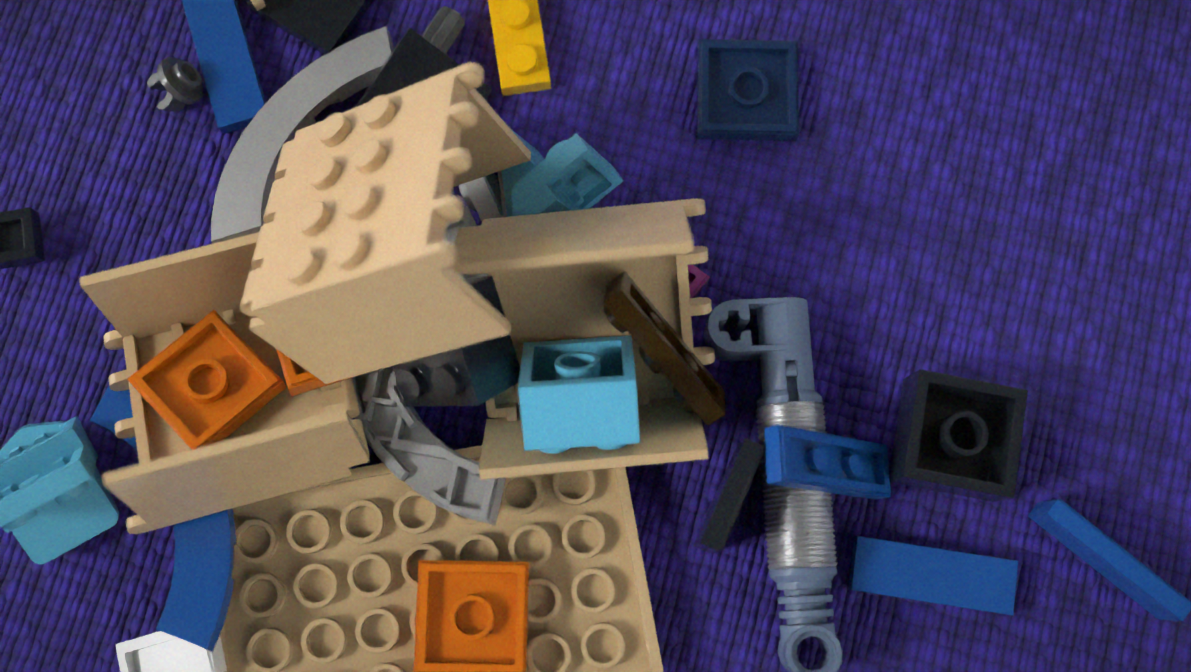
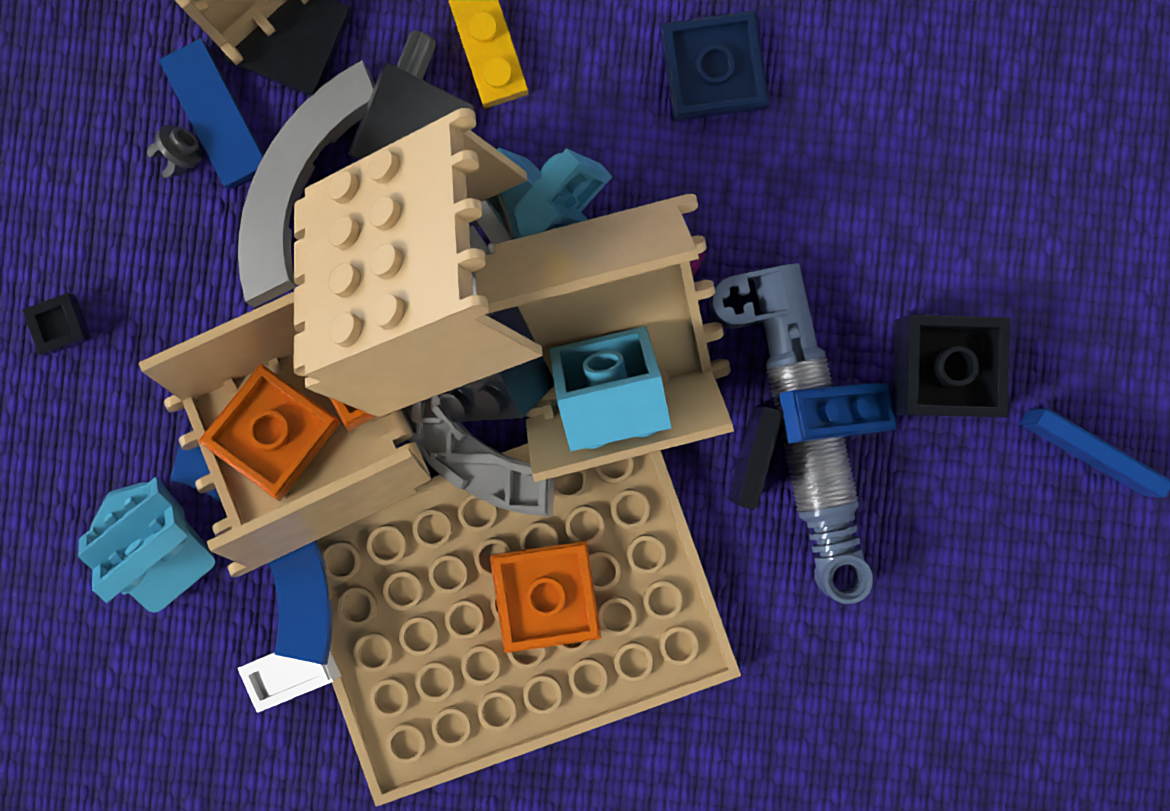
camera: 10 degrees left, 10 degrees up
(663, 349) = (678, 335): dark brown plate -> none
(933, 575) = (941, 491): blue tile -> none

